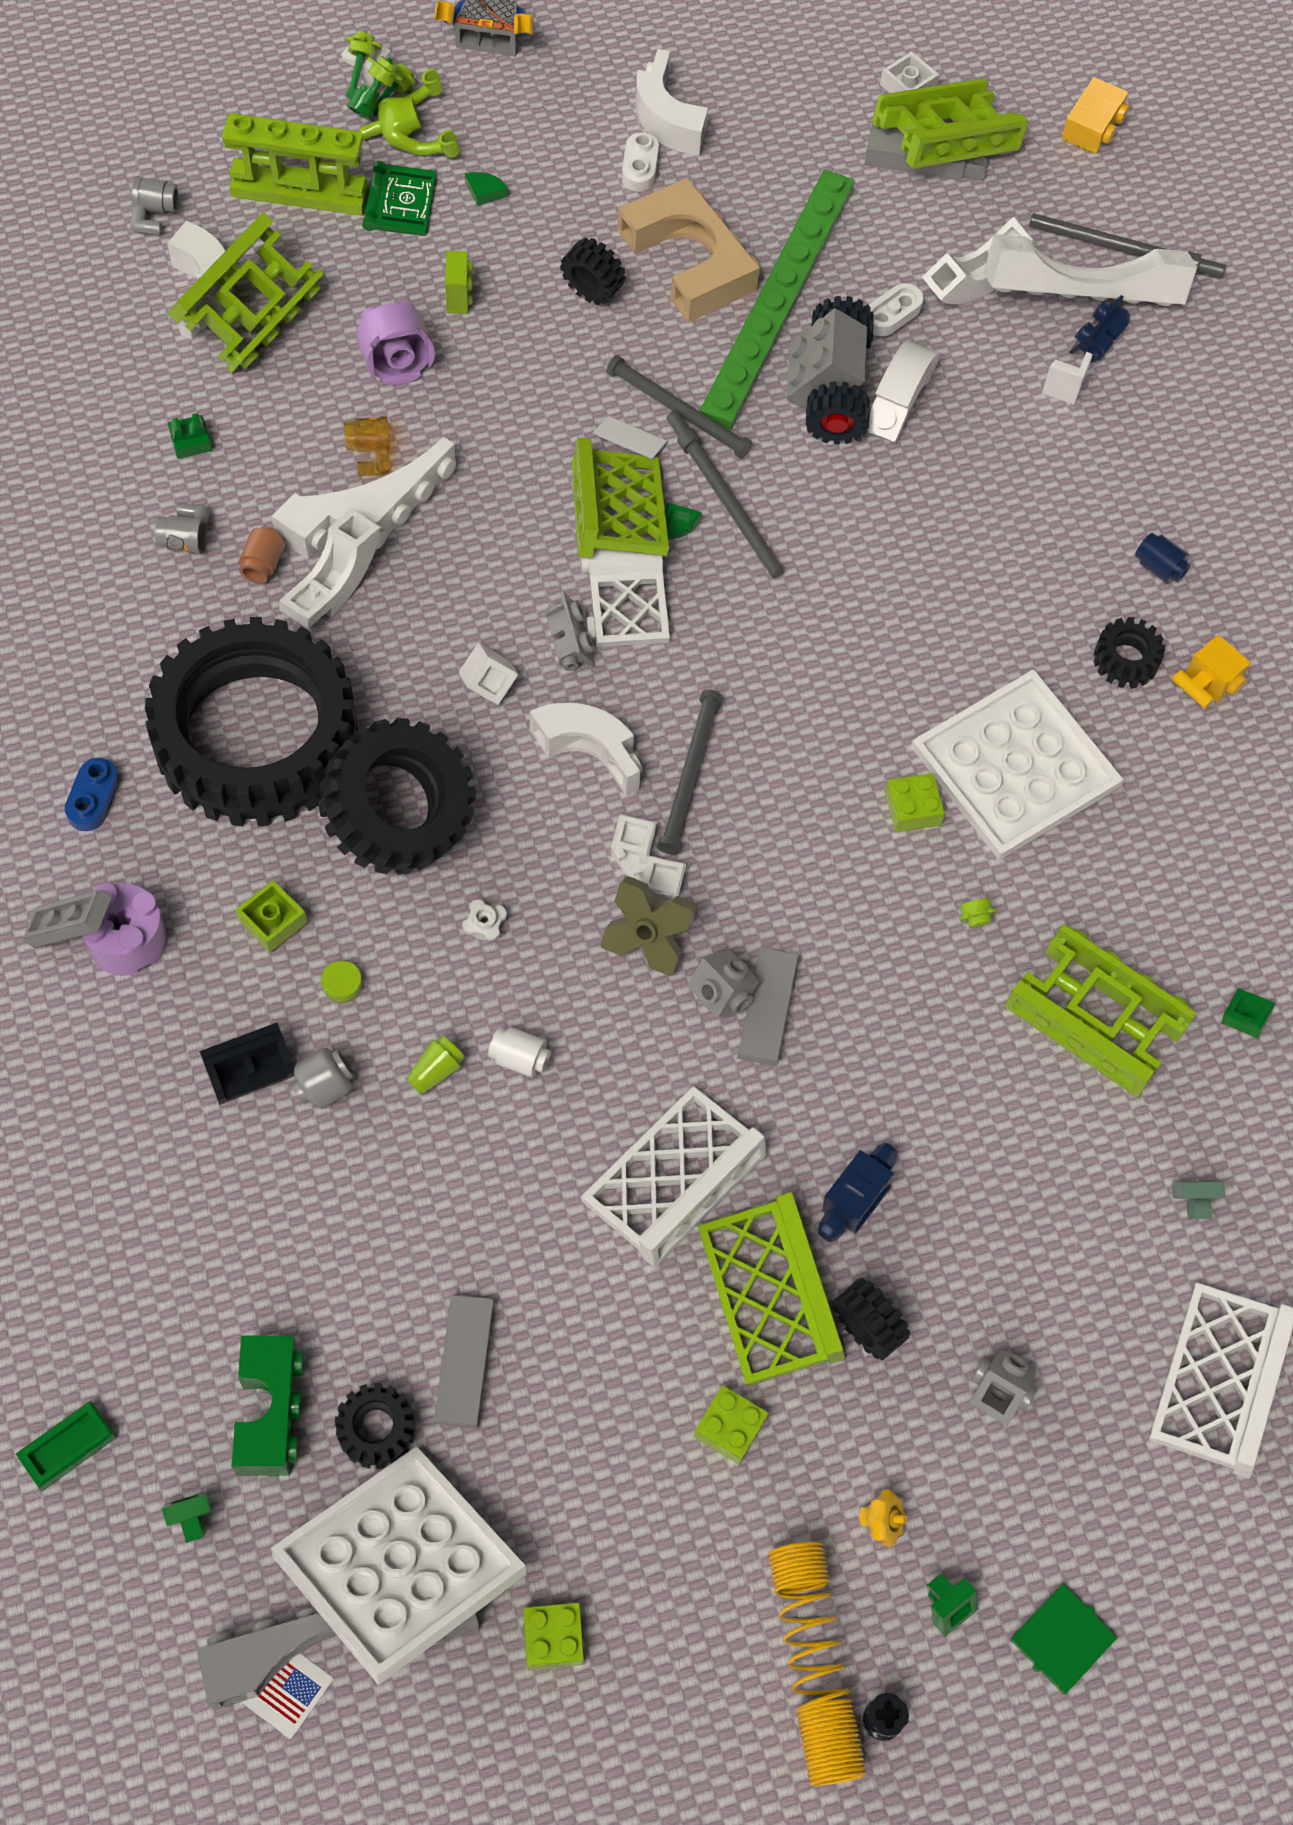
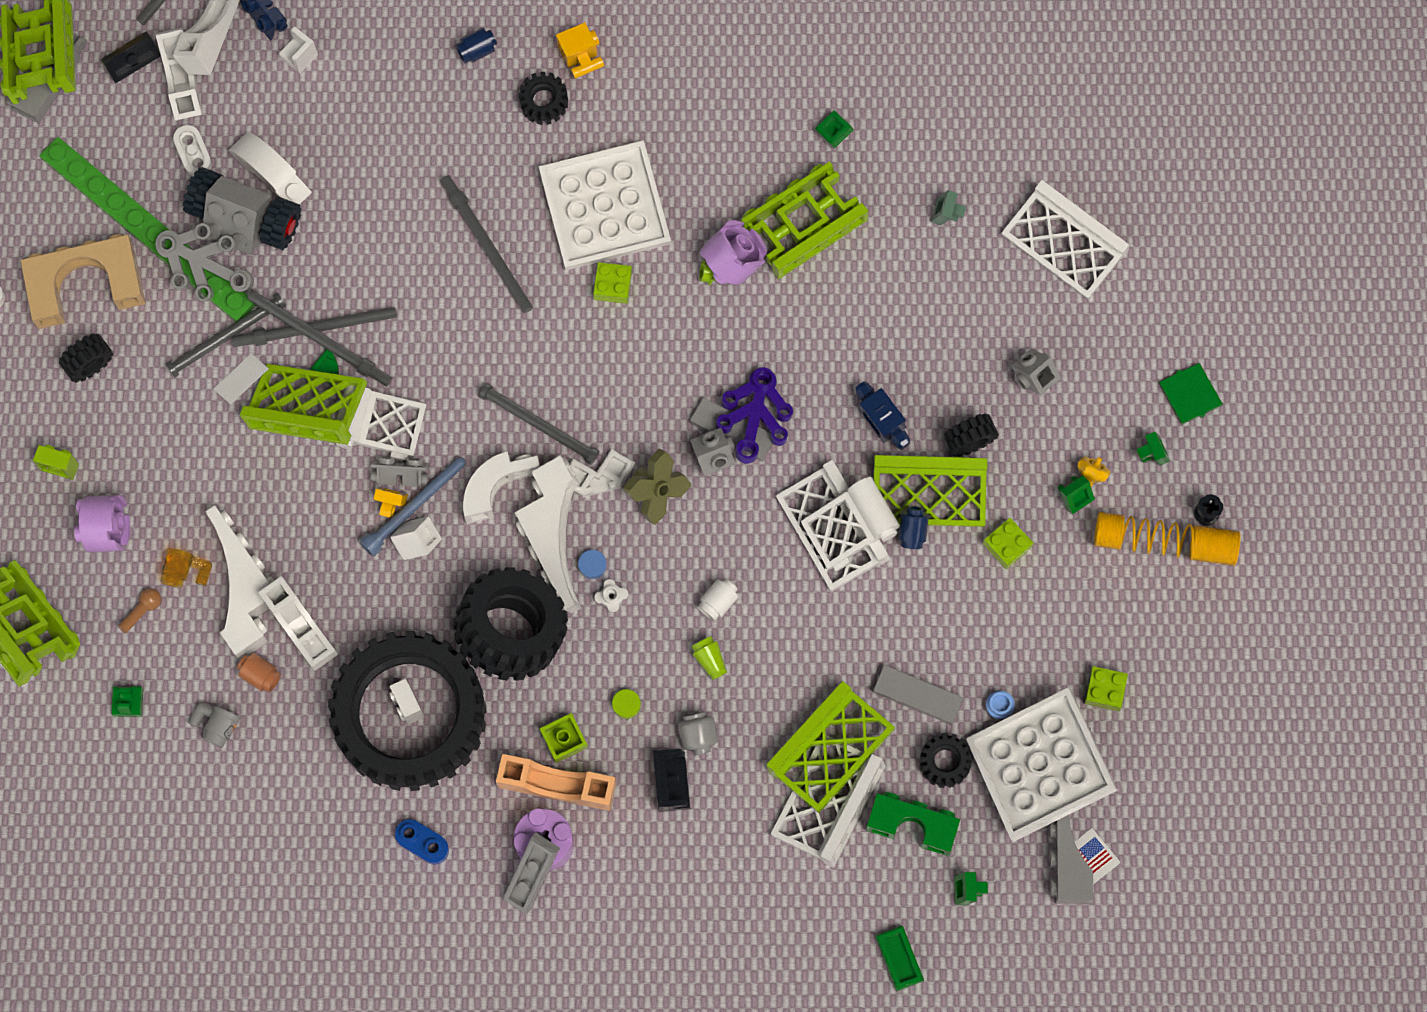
camera: 65 degrees left, 10 degrees up
(205, 944) = (572, 787): none -> light nougat arch
(267, 720) = (408, 705): none -> white piece
(267, 1313) = (846, 817): none -> white fence
(322, 424) = (148, 600): none -> medium nougat bar
(372, 1229) = (810, 732): none -> lime fence
(469, 630) = (373, 541): none -> sand blue piece
(482, 1483) = (1000, 704): none -> light blue plate
(521, 887) = (592, 564): none -> medium blue tile
(528, 630) = (389, 500): none -> yellow tile
(547, 814) = (546, 523): none -> white arch
(693, 556) = (364, 366): none -> dark grey bar
(699, 1209) = (869, 510): none -> white piece
(705, 1279) = (913, 527): none -> dark blue brick
(761, 314) = (199, 259): none -> light grey plant
(800, 1022) = (755, 411): none -> dark purple plant
(839, 1503) = (1076, 494): none -> green tile
(949, 602) = (460, 202): none -> dark grey bar
(977, 214) = (131, 57): none -> black plate
(1011, 927) = (734, 253): none -> lavender brick

